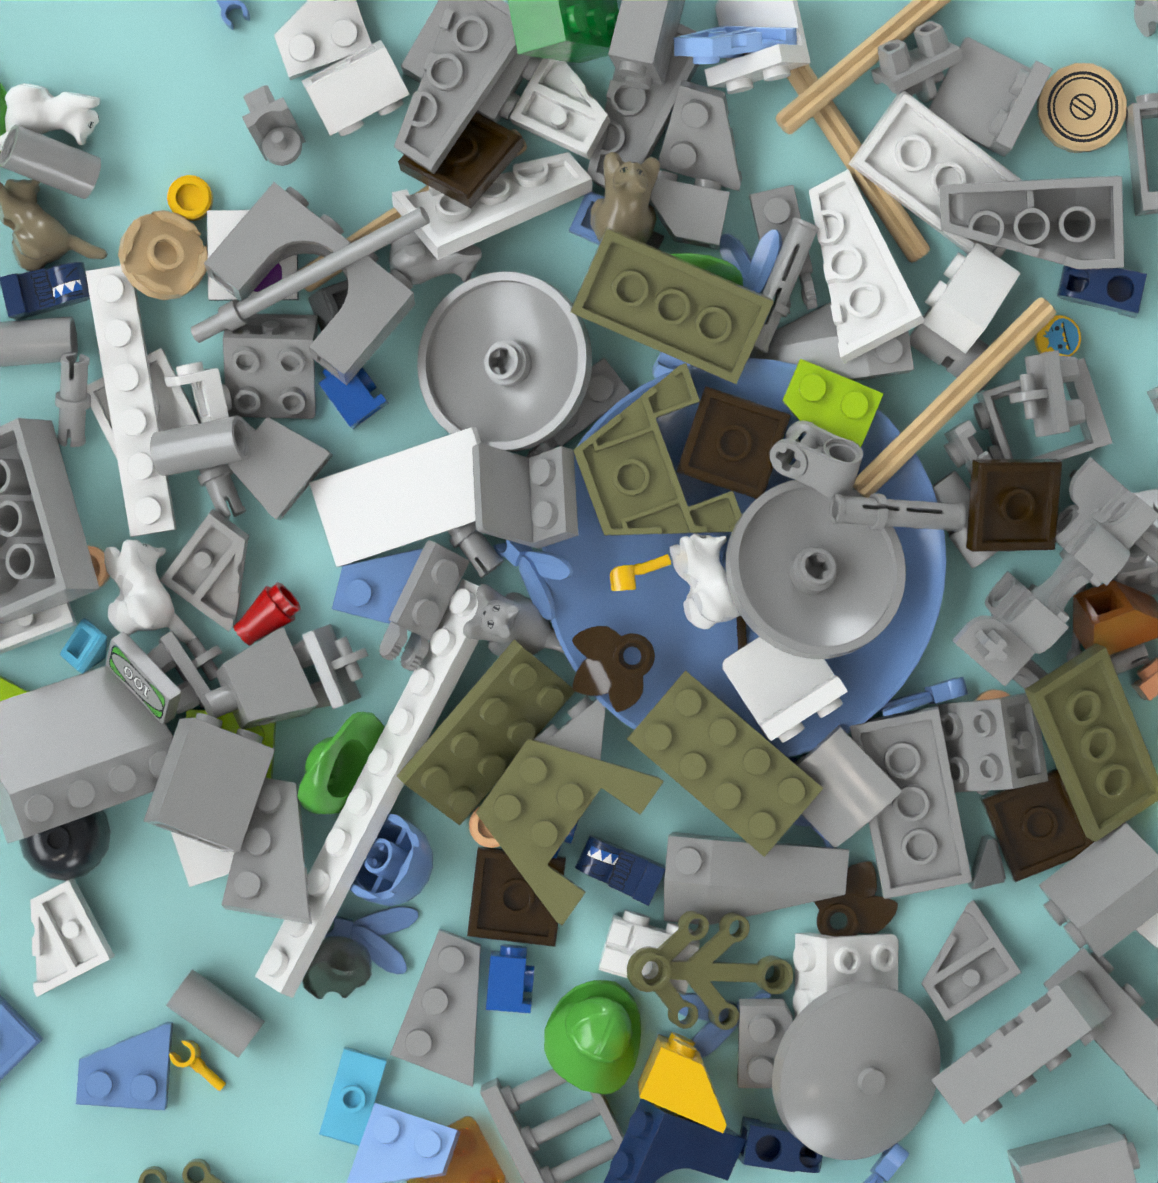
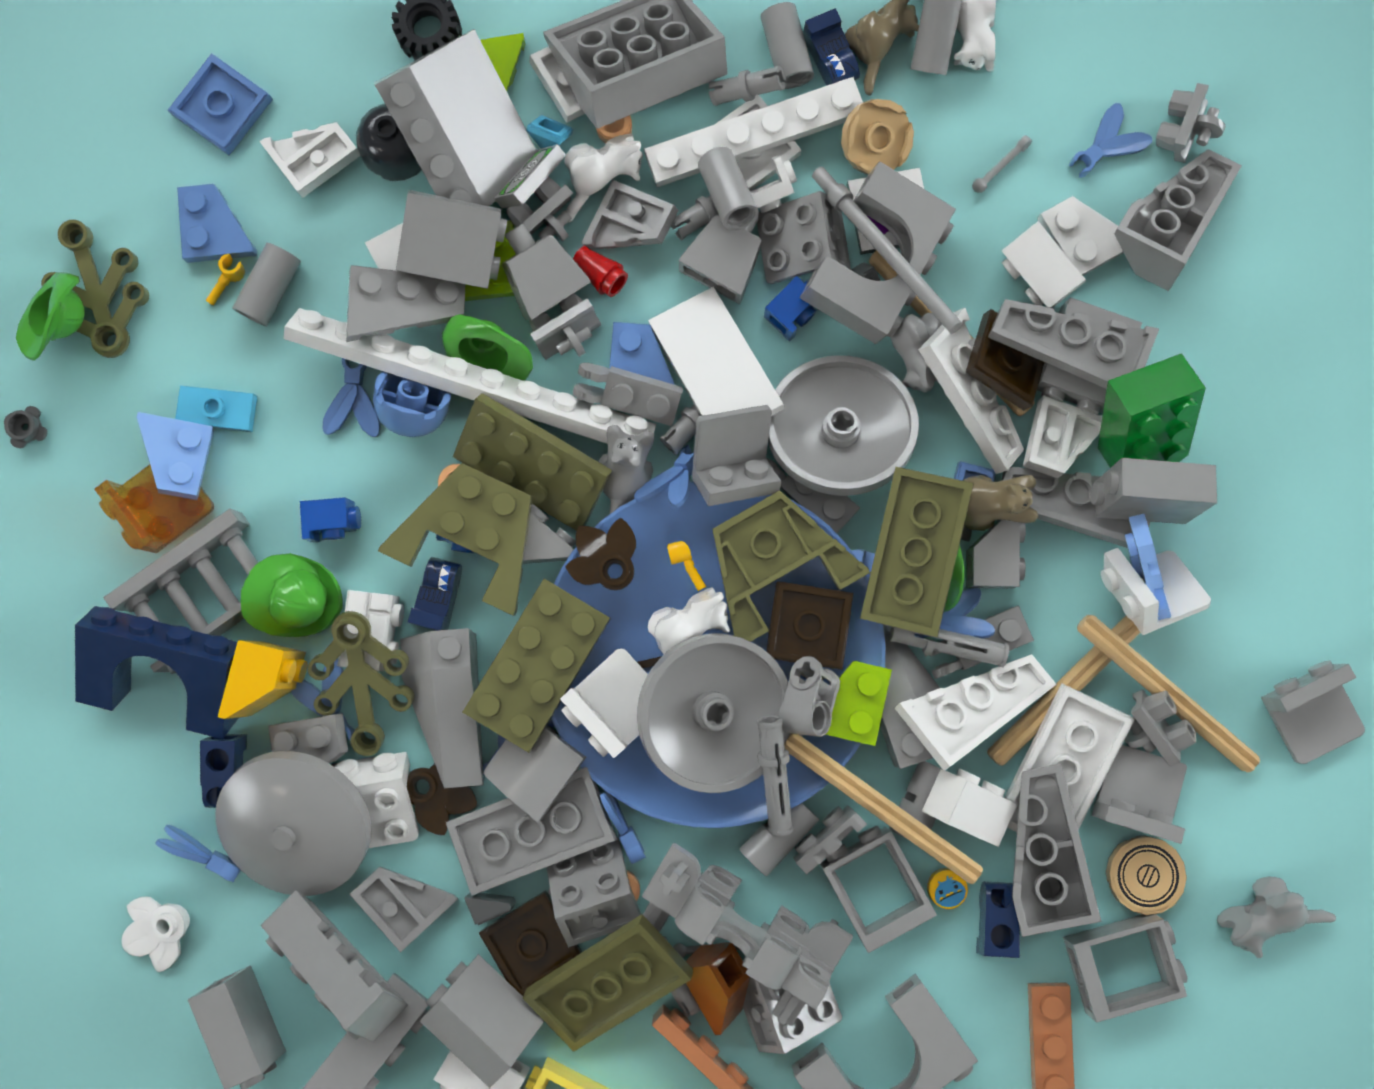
camera: 80 degrees right, 5 degrees down
(190, 197) = (927, 154): yellow tile -> none
(239, 140) = (980, 184): none -> light grey hinge
(273, 127) = (1000, 202): light grey hips -> none
(338, 967) = (320, 374): clear smoke hair -> none
(443, 1011) = (296, 469): light grey wing -> none
(505, 903) = (389, 503): dark brown tile -> none
(700, 137) = (1059, 554): light grey wing -> none
(1013, 504) = (800, 876): dark brown tile -> none
(1045, 396) = (899, 887): light grey hips -> none

